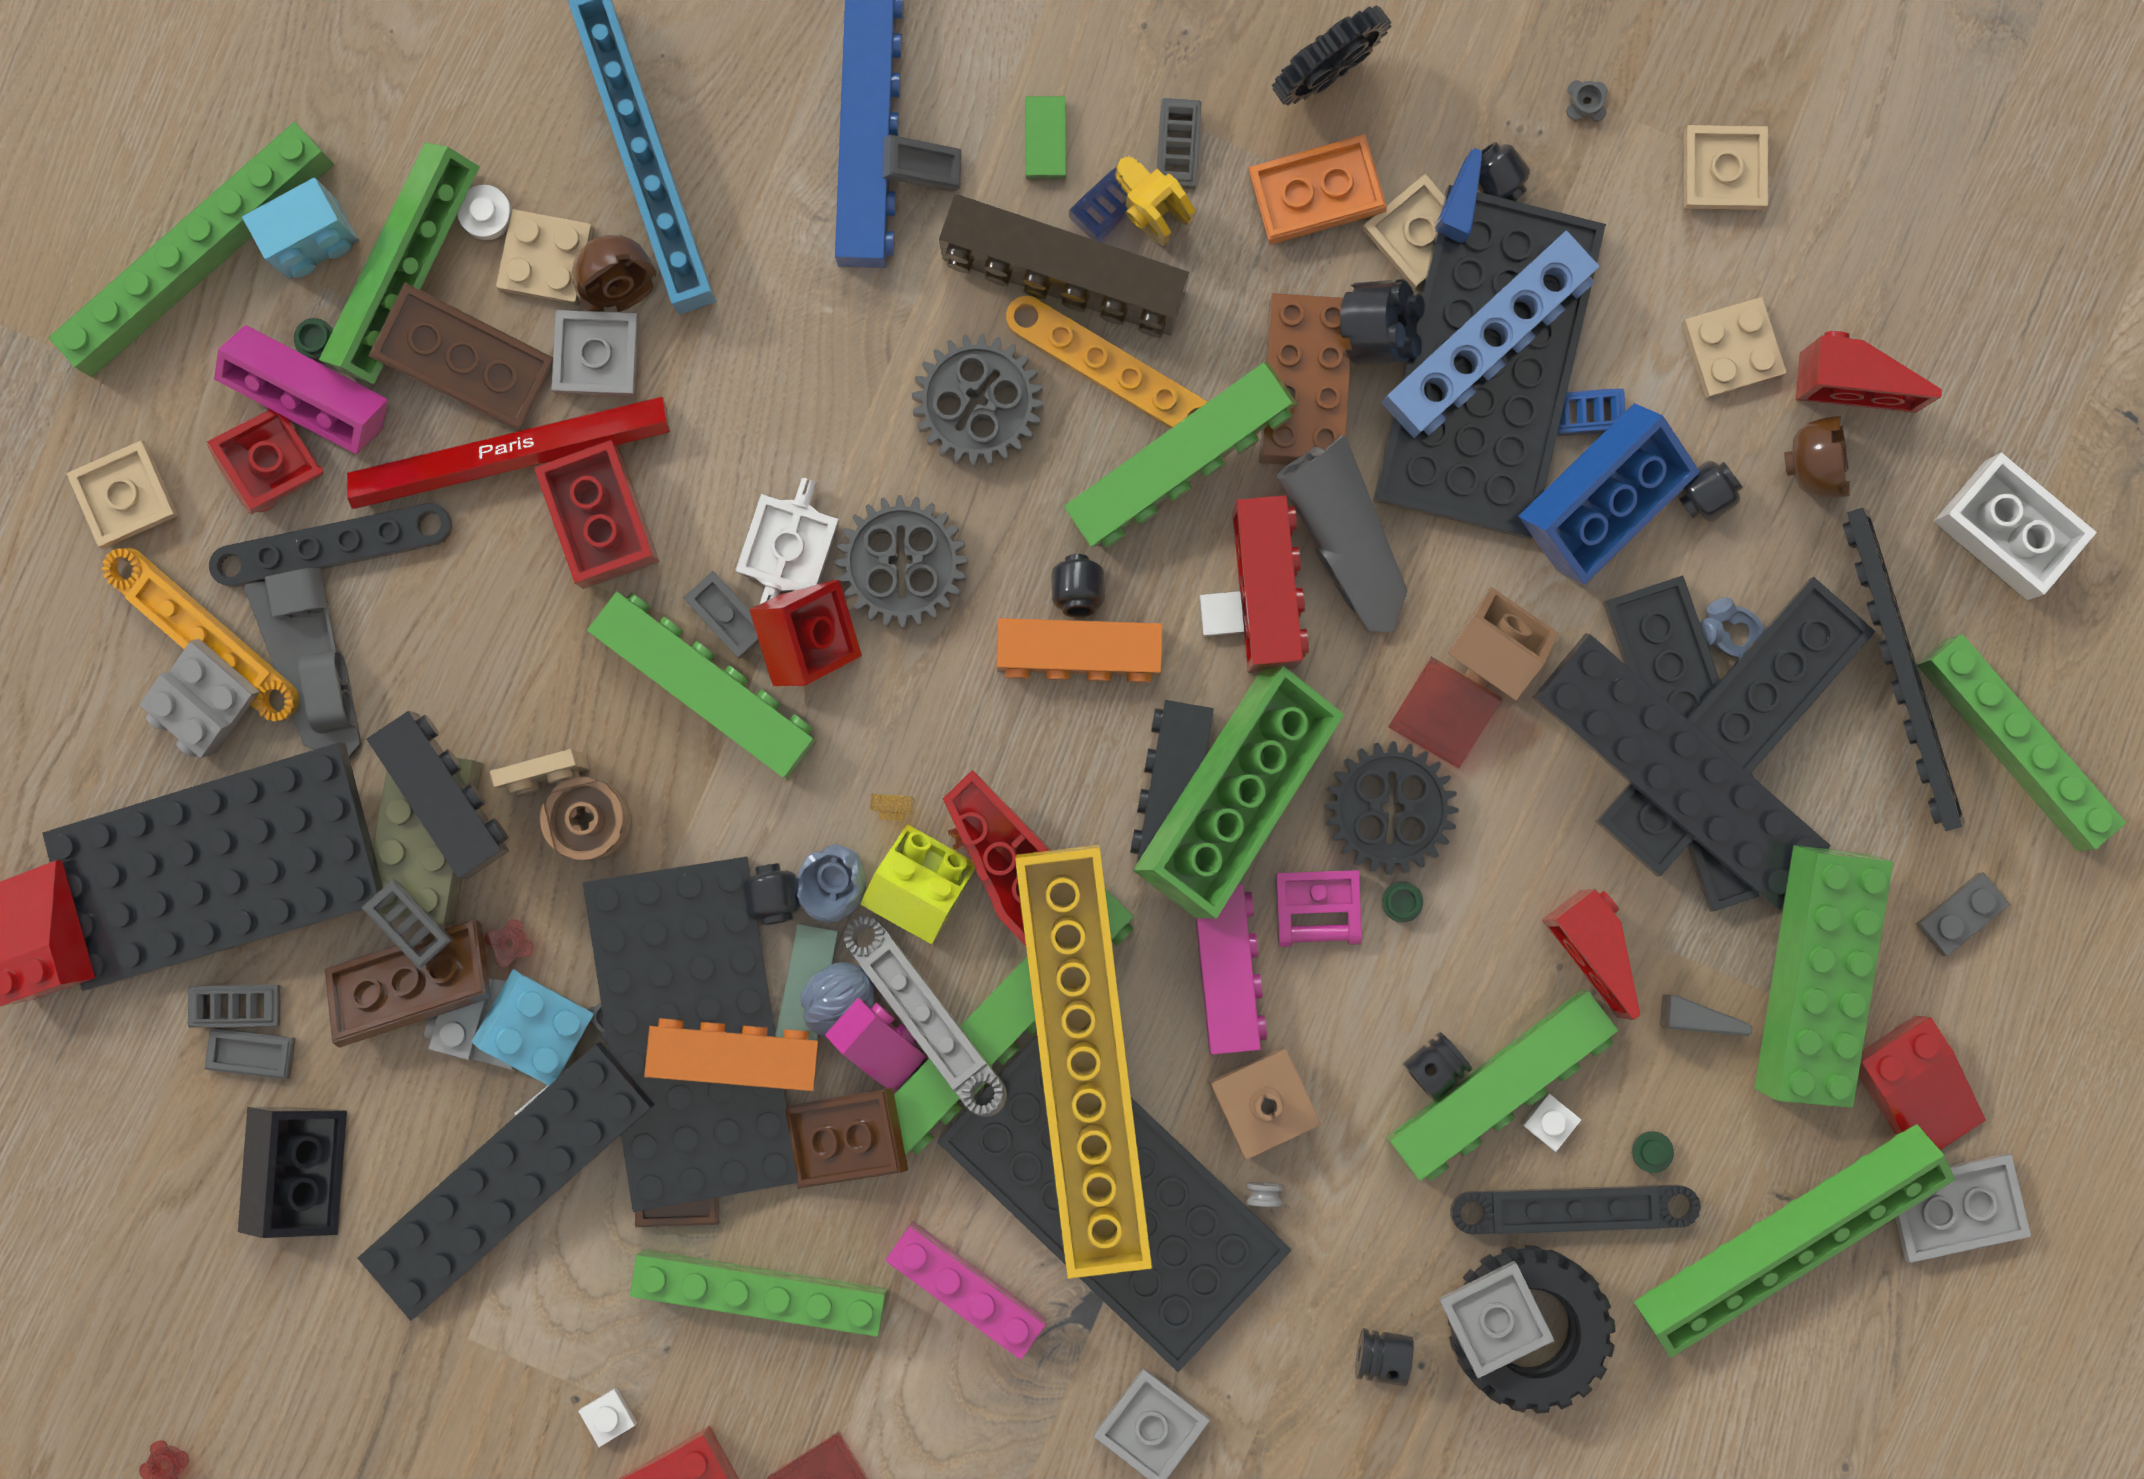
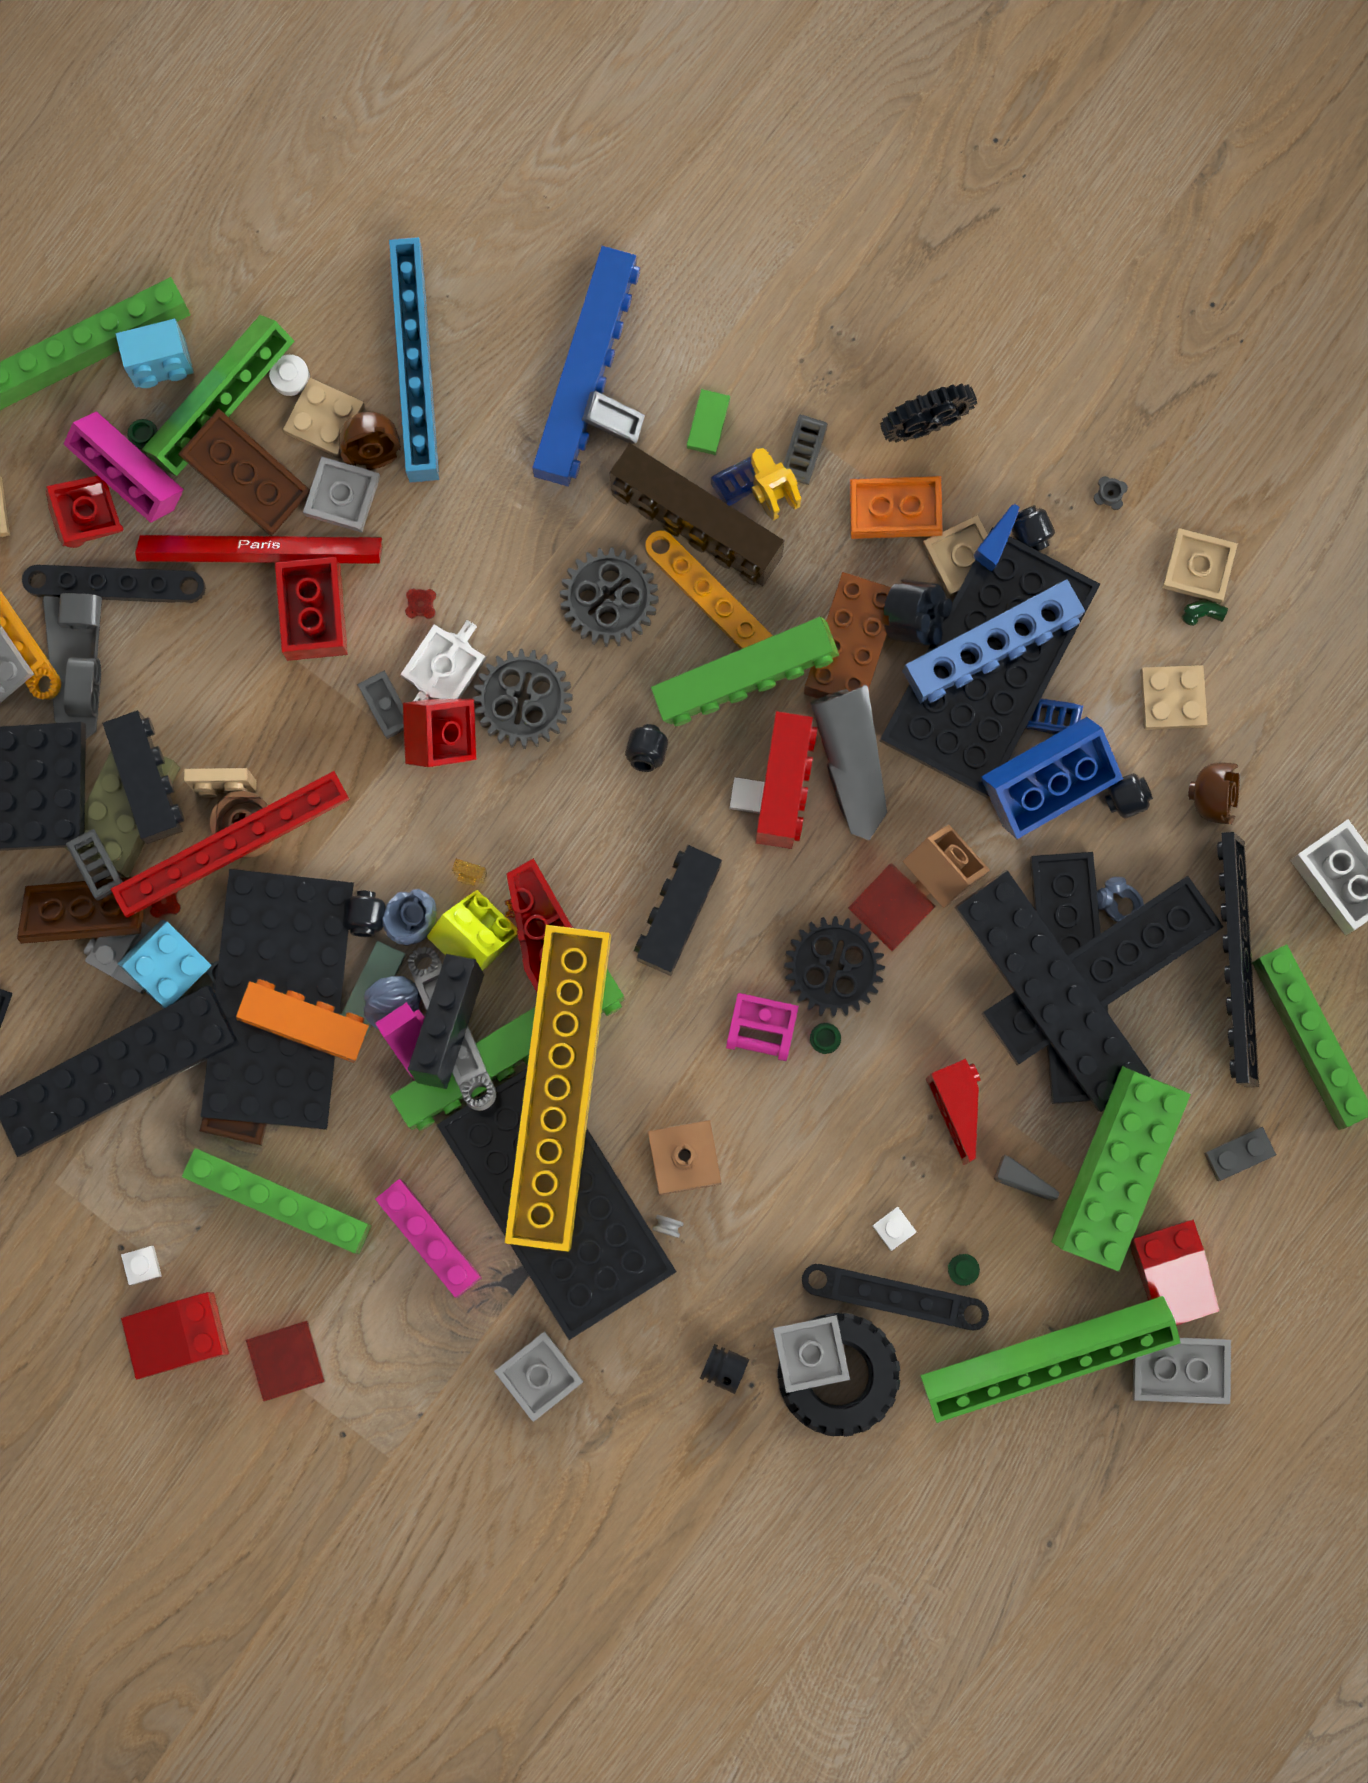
camera: 15 degrees right, 5 degrees down
(575, 853) = (230, 844): none -> red plate
(702, 685) = (355, 751): bright green brick -> none
(728, 462) = (414, 597): none -> clear red plate
(846, 1138) = (370, 1103): reddish brown tile -> none
(917, 1012) = (446, 1021): none -> black brick
(1079, 648) = (635, 793): orange brick -> none
(1228, 977) = (682, 1053): dark pink brick -> none
(1238, 792) = (723, 923): bright green brick -> none
(1444, 1059) = (825, 1164): black piece -> none
(1502, 1085) = (864, 1190): bright green brick -> none
(1741, 223) = (1203, 608): none -> dark green arm
(1859, 375) = (1258, 739): red slope -> none

